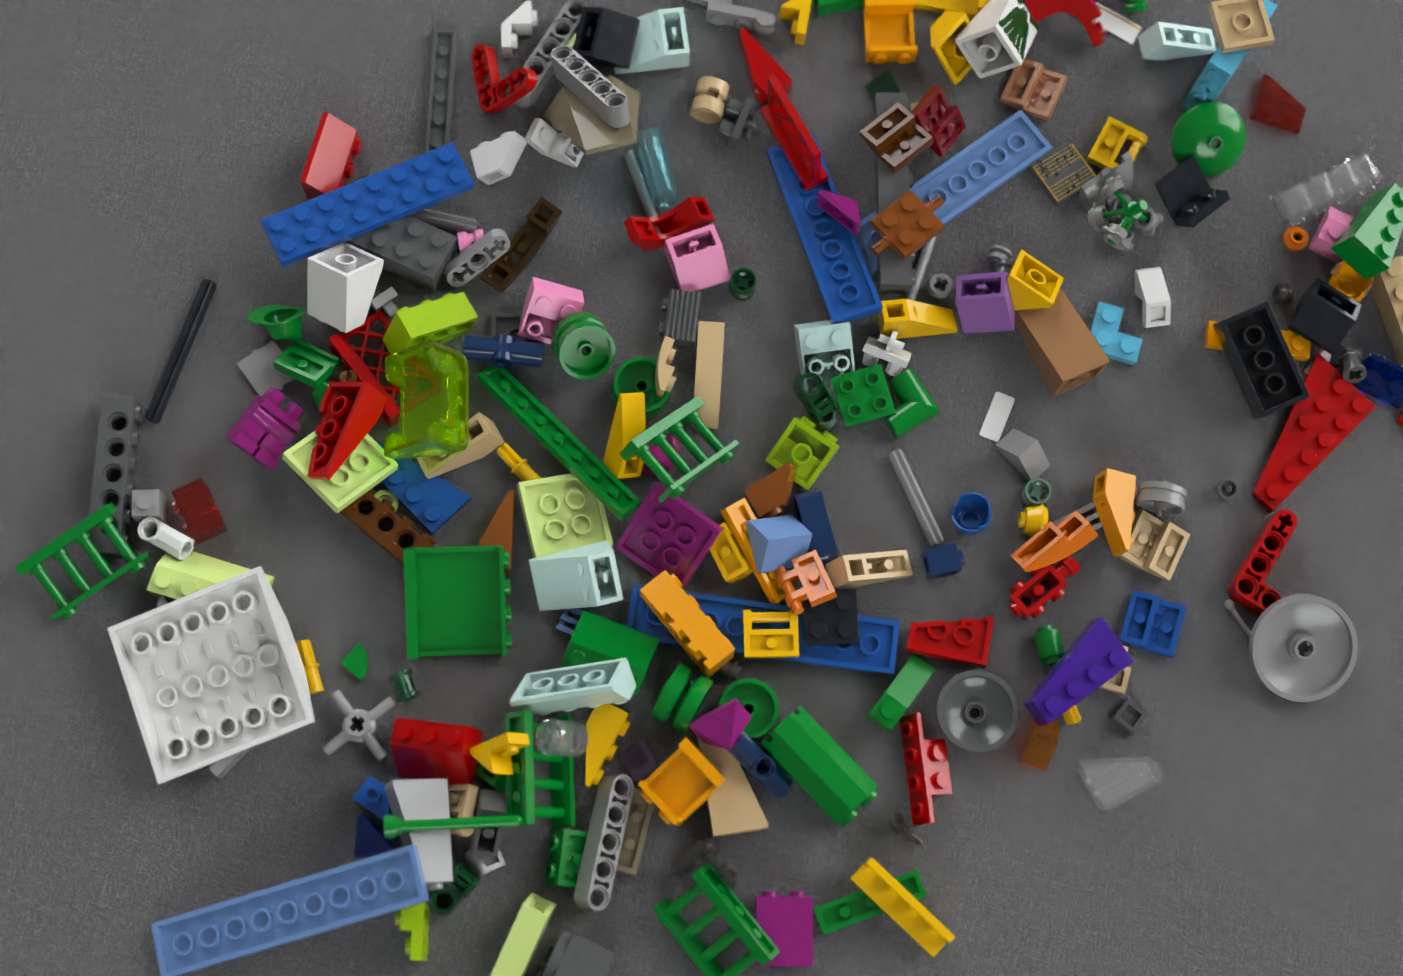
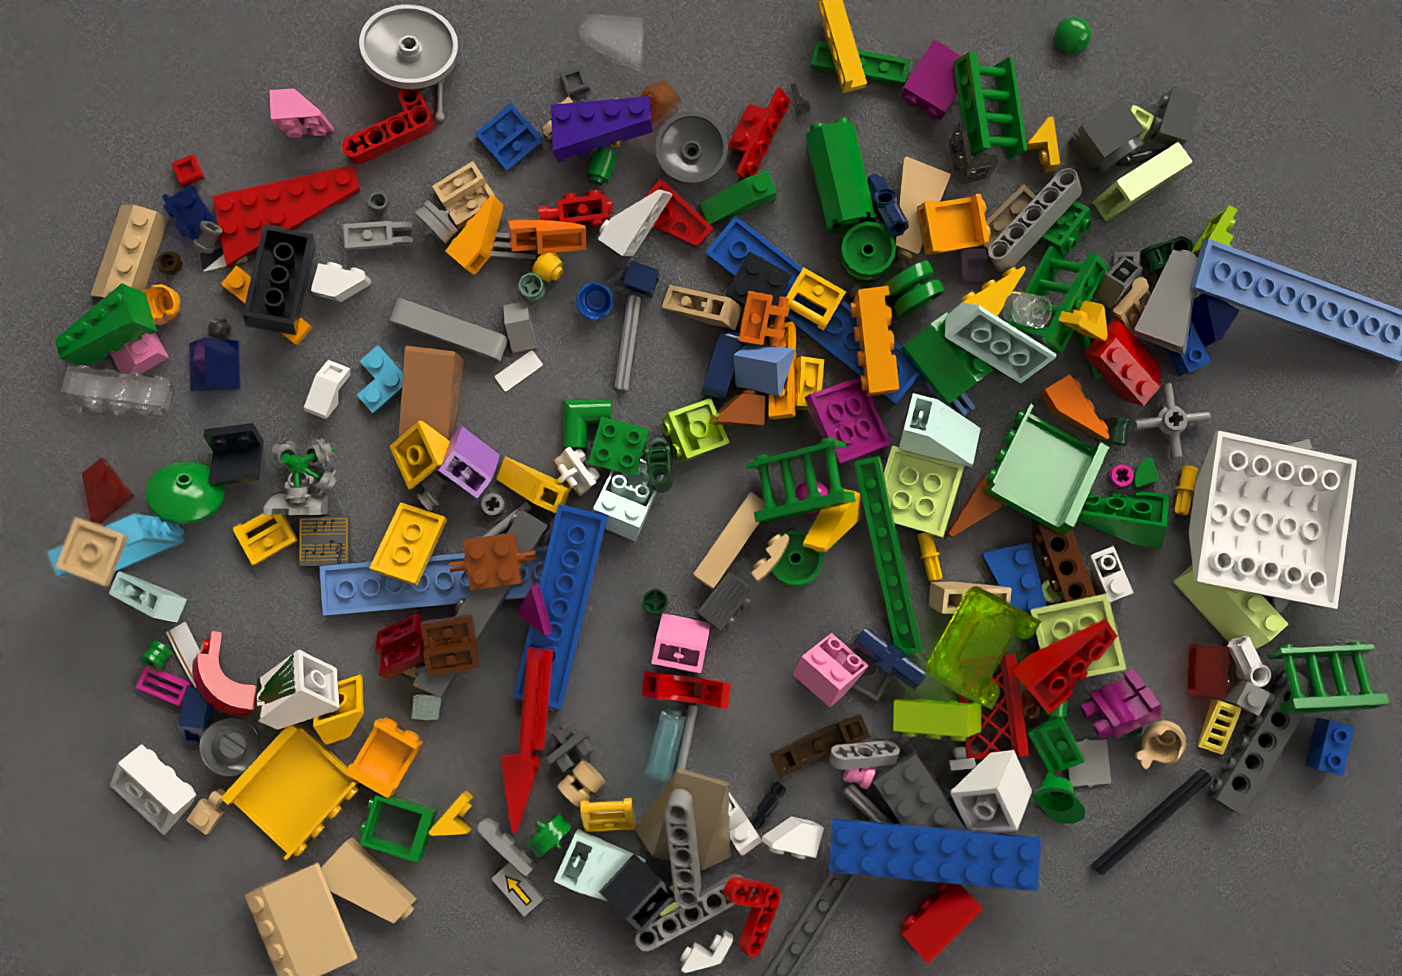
camera: 135 degrees left, 10 degrees up
(47, 506) = (1329, 746): none -> blue brick
(174, 482) = (1227, 729): none -> light yellow slope
(209, 420) = (1162, 743): none -> tan hat
(340, 540) = (1109, 574): none -> white slope
(350, 608) = (1134, 518): none -> green wedge
(373, 638) = (1128, 475): none -> dark pink bush
(395, 826) = (1200, 309): green piece -> none
(466, 681) = (1070, 405): none -> orange slope
(536, 174) = (767, 804): none -> black axle
(583, 346) = (823, 621): green wheel -> none
(641, 936) = (1046, 140): none -> yellow slope
(671, 86) = (608, 815): none -> yellow plate
(710, 42) = (548, 835): none -> green wheel
(722, 725) = (900, 242): magenta slope -> none
(982, 593) = (630, 227): none -> white slope
(989, 206) = (408, 544): none -> yellow plate
(1034, 89) = (298, 628): nougat slope -> none
(1084, 412) = (448, 329): none -> light grey beam
(1209, 457) = (375, 235): none -> light grey hinge
(1211, 393) = (336, 283): none -> white slope
(1263, 262) = (214, 364): none -> clear blue slope
(1292, 244) = (180, 371): orange plate -> none
(1324, 316) = (200, 287): black slope -> none
(1355, 519) = (297, 115): none -> bright pink slope
(1373, 323) = (165, 258): none -> dark brown plate

